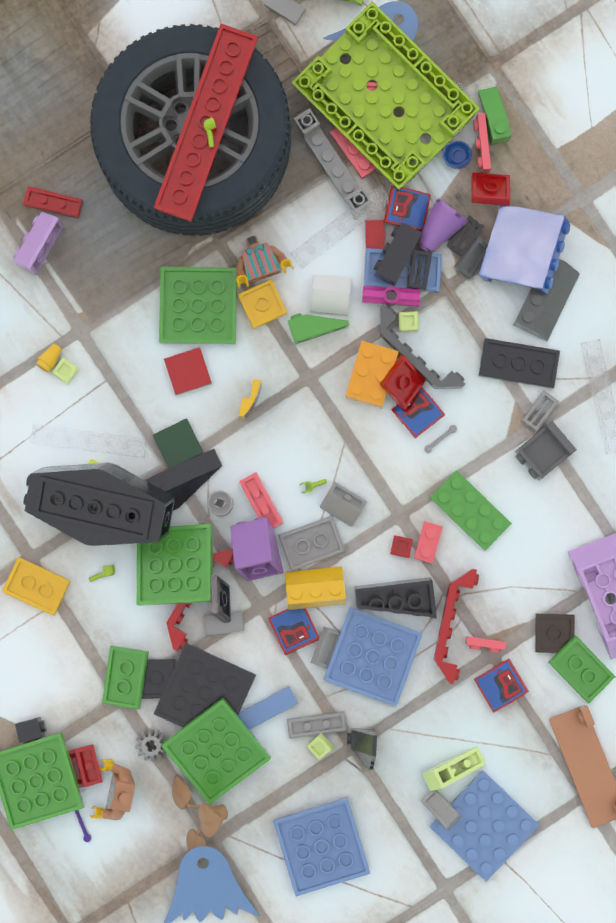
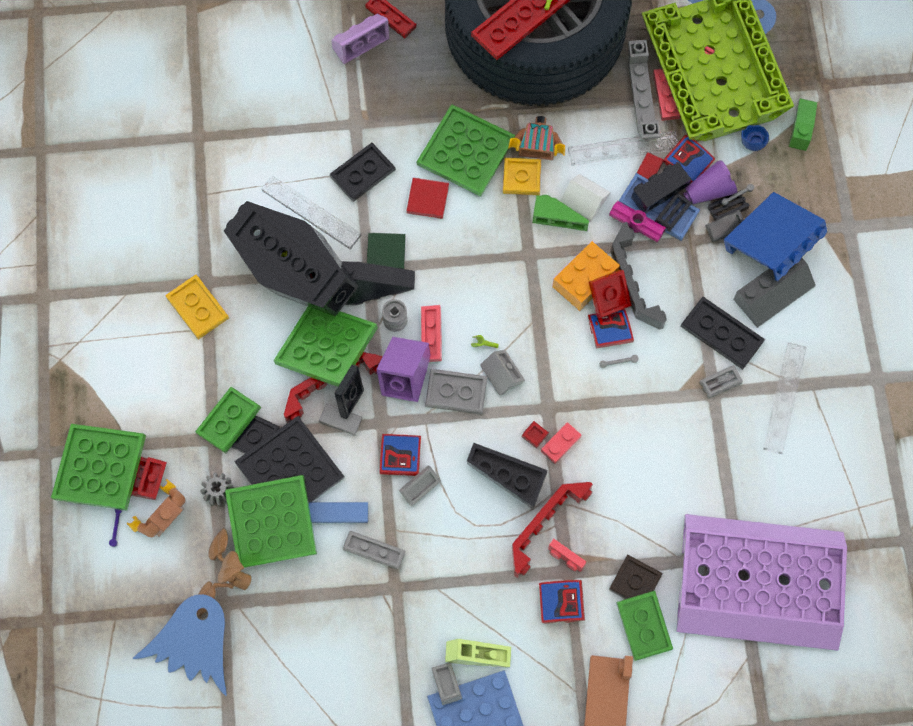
camera: 25 degrees right, 15 degrees down
(30, 729) = (120, 419): black brick -> none
(49, 358) = (316, 130): yellow cone -> none
(65, 370) = (324, 147): yellowish green tile -> none
(108, 571) = (266, 324): lime hand -> none
(113, 376) = (362, 172): none -> black tile
(248, 404) = (467, 244): yellow slope -> none
(315, 588) = (437, 429): yellow slope -> none
(320, 746) = (366, 569): yellowish green tile -> none
(321, 846) = (317, 661): medium blue plate -> none
(364, 745) = (407, 585): wedge -> none
(373, 656) = (457, 515): medium blue plate -> none
(408, 321) = (641, 251): yellowish green tile -> none
(470, 510) = (614, 435): bright green plate -> none
(476, 208) = (750, 187): none -> light grey hinge
(481, 143) = (781, 138): coral plate -> none
(490, 189) = (770, 177): red tile -> none
(545, 451) = (708, 417): dark grey panel -> none

